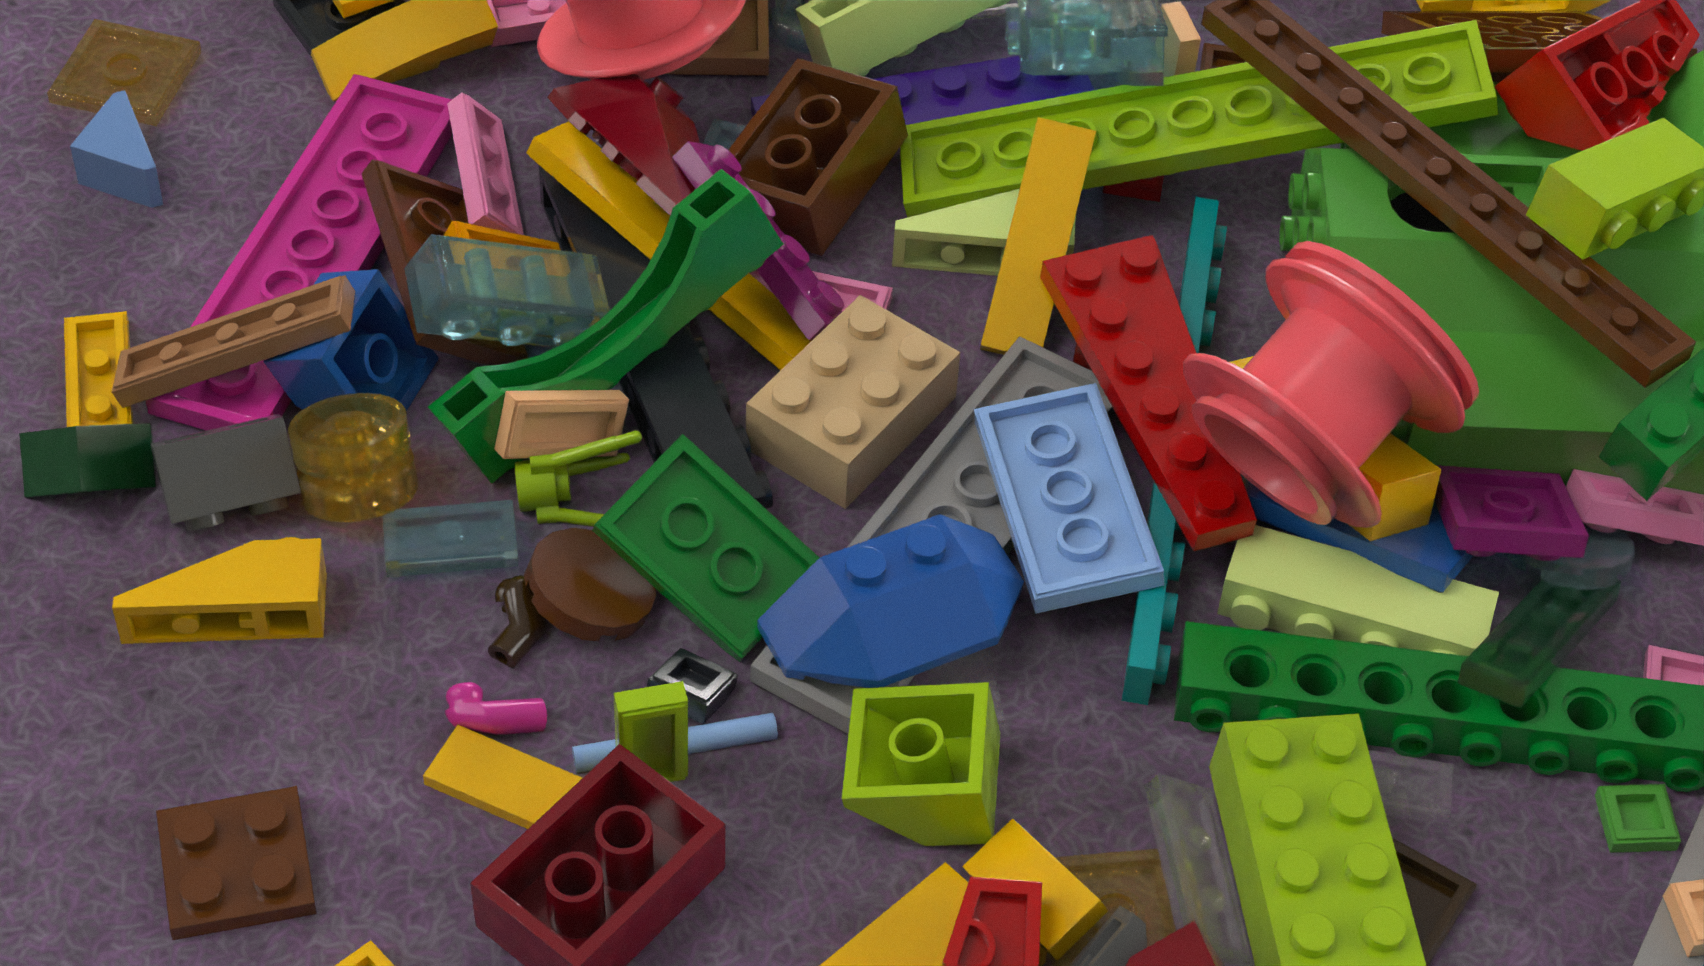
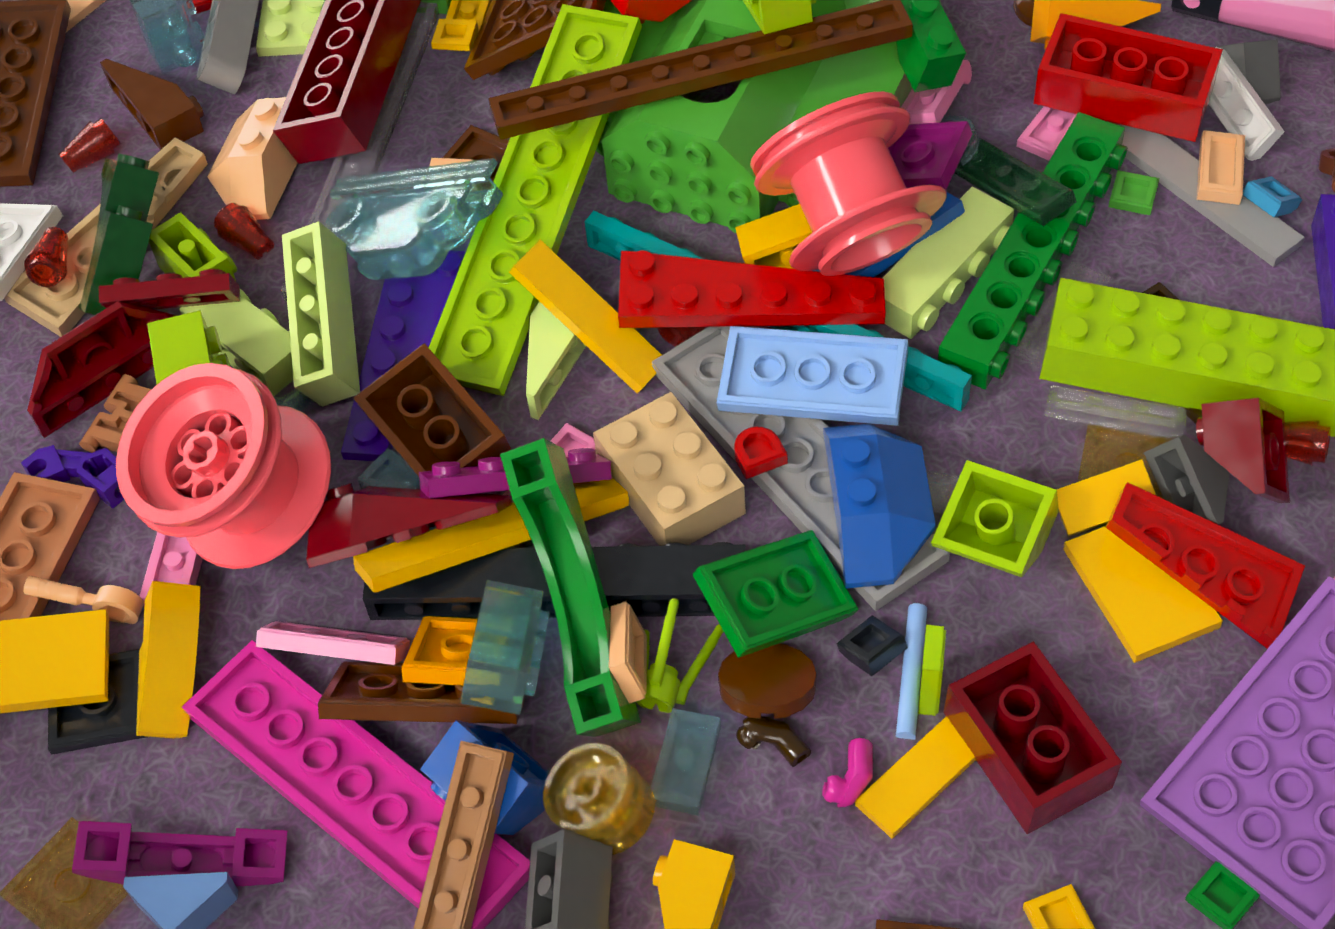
camera: 60 degrees left, 5 degrees up
(173, 130) = (114, 852): none -> magenta slope
(922, 476) = (758, 451): none -> red tile

